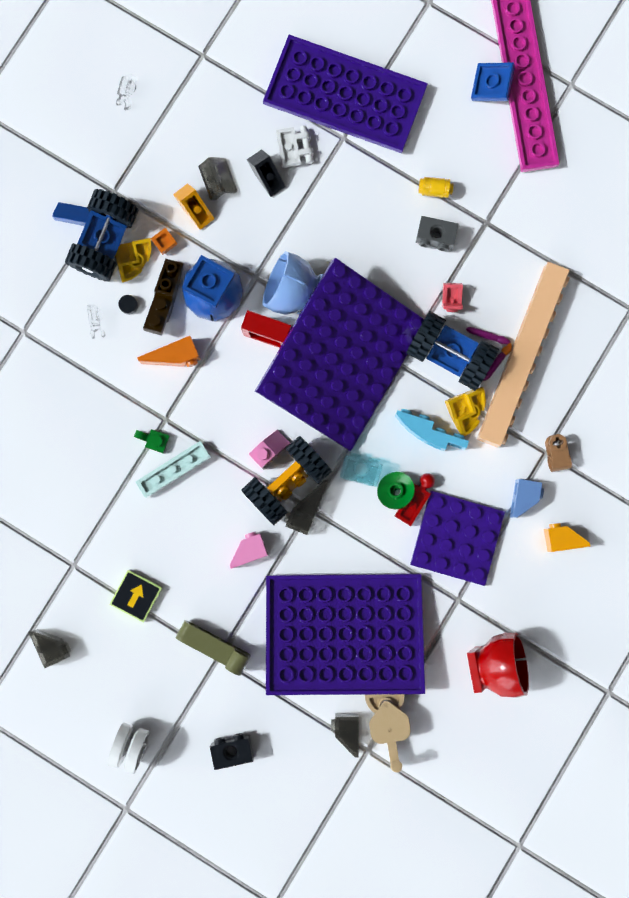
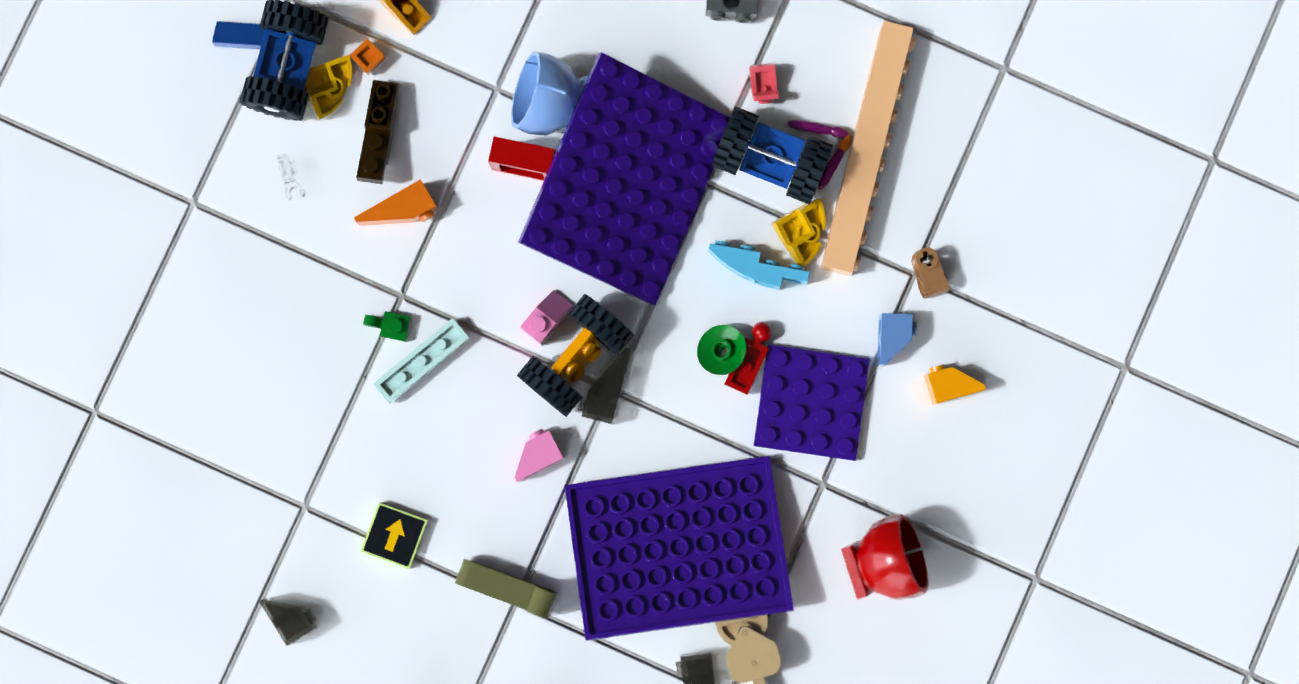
camera: 20 degrees left, 0 degrees up
(128, 304) = (330, 148): black tile -> none
(212, 289) = (441, 114): blue plate -> none
(373, 472) = (685, 338): clear light blue brick -> none

